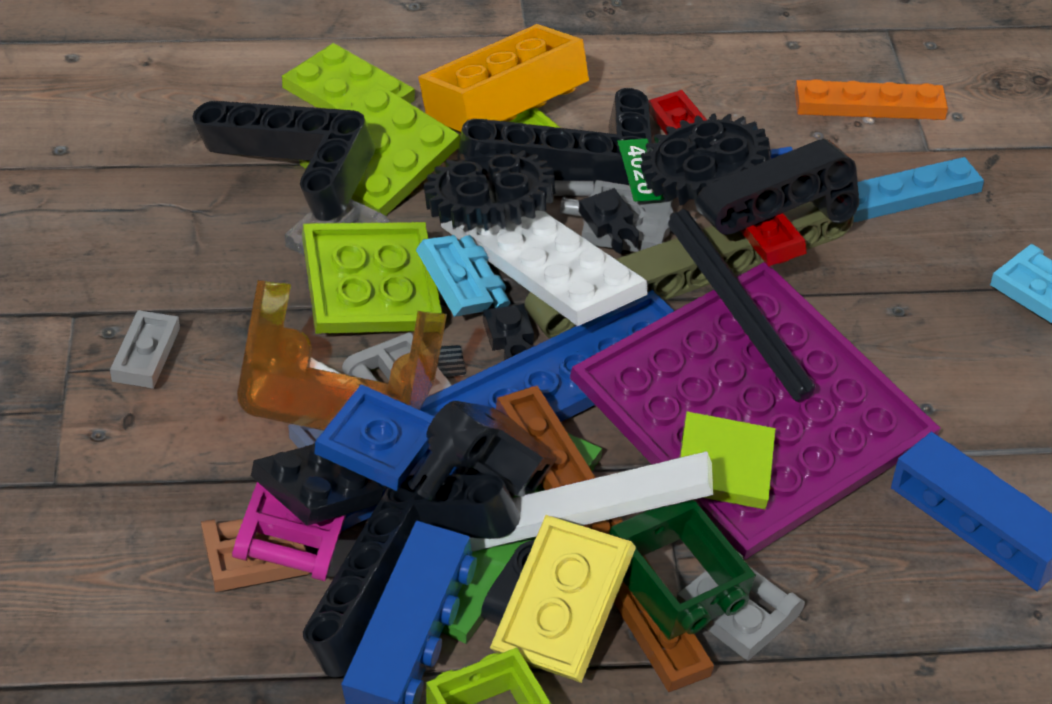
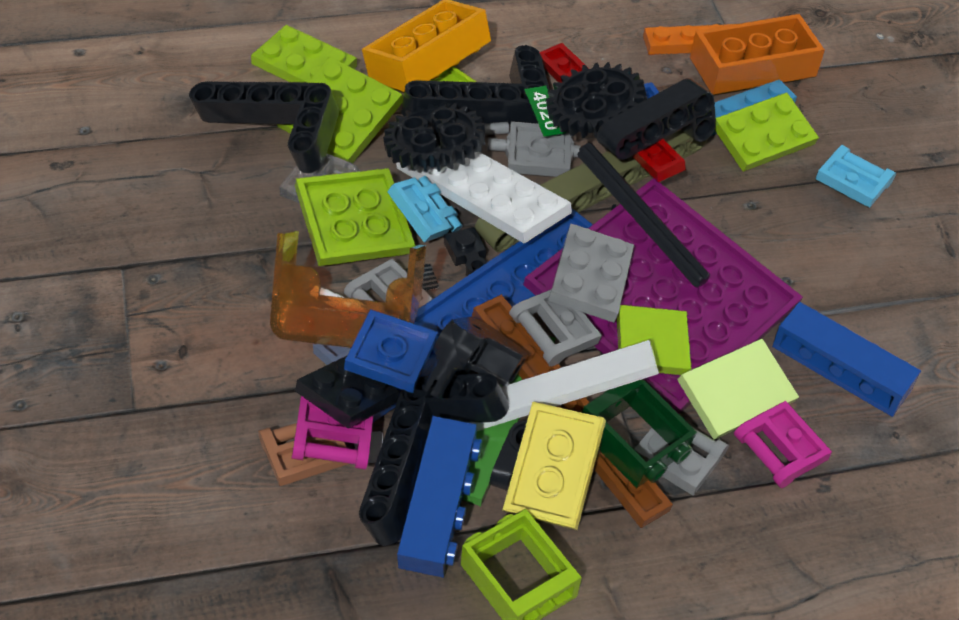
camera: 10 degrees left, 5 degrees up
(145, 349) = (186, 291): light grey plate -> none
(609, 215) = (528, 149): black plate -> none
(610, 421) = (567, 324): none -> light grey plate
(657, 368) = (591, 273): none -> light grey plate
(829, 532) = (736, 388): none -> yellowish green tile
(889, 599) = (790, 436): none -> dark pink plate
(932, 220) = (765, 131): none -> lime plate
(937, 121) = (756, 53): none -> orange brick

